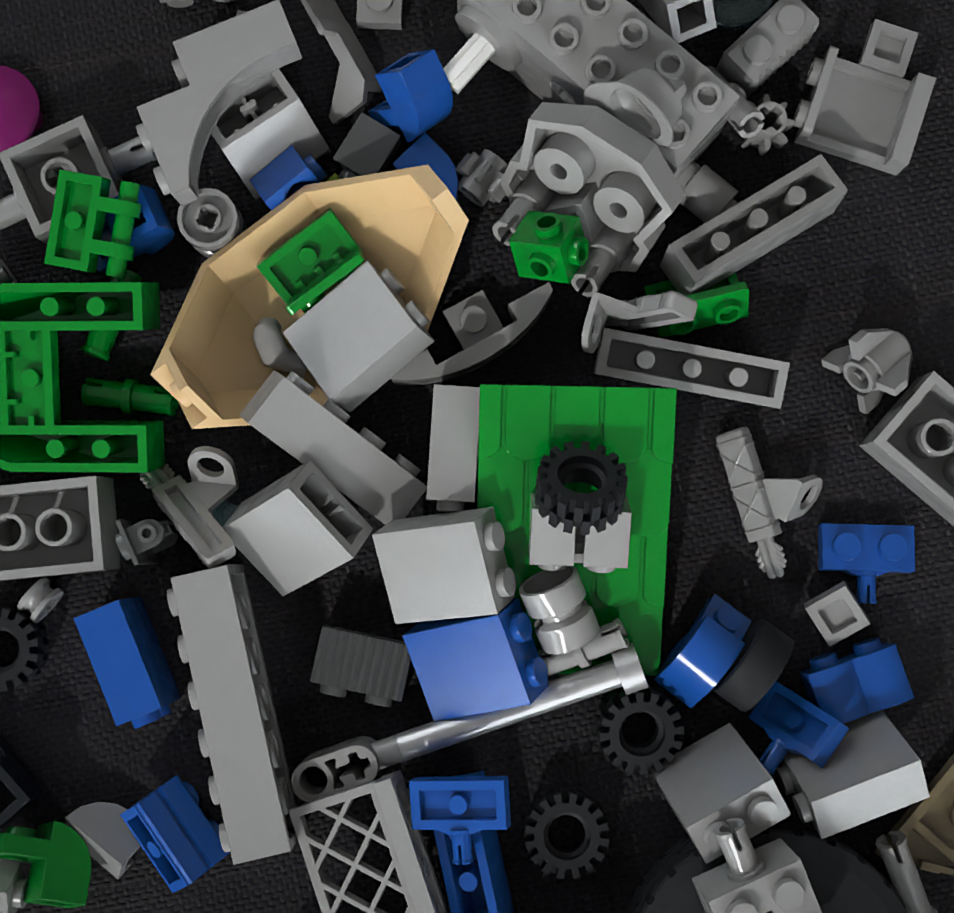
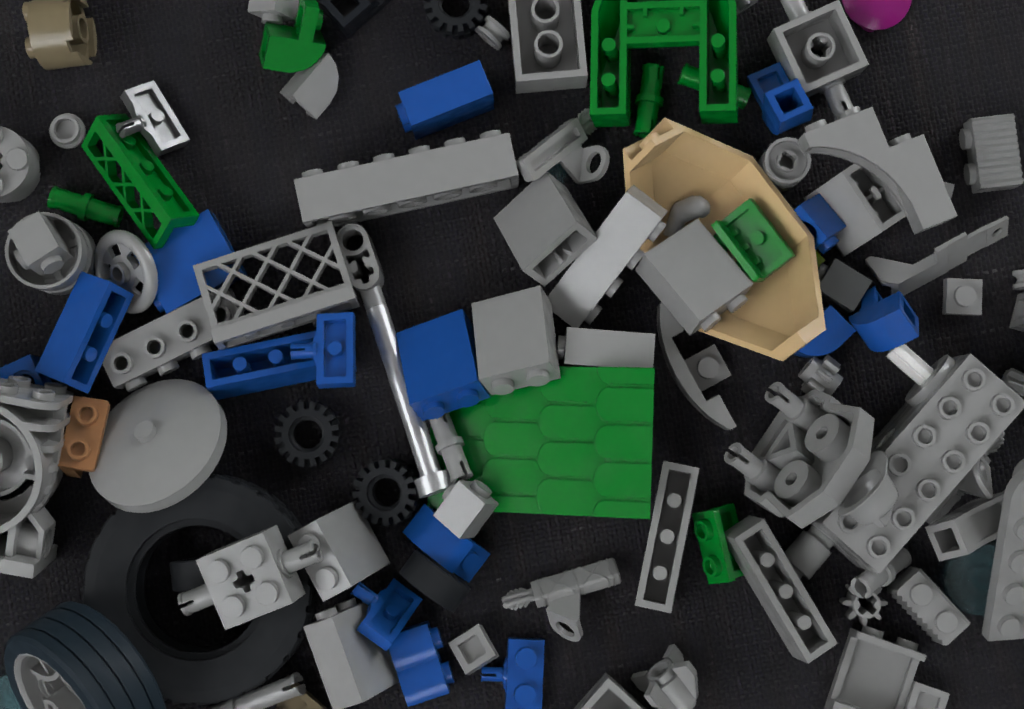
camera: 85 degrees right, 0 degrees up
(79, 223) = (785, 63): green plate -> none
(144, 539) = (538, 112): dark grey hinge -> none
(175, 833) = (314, 135): blue brick -> none
(362, 665) = (440, 277): dark grey brick -> none
(549, 246) = (763, 425): green brick -> none
(561, 615) = (477, 429): light grey wheel -> none
(581, 508) = (590, 443): black tyre -> none
(598, 552) = (541, 443): light grey piece -> none
(634, 314) = (709, 491): light grey piece -> none
(661, 627) = (466, 507): none -> light grey brick

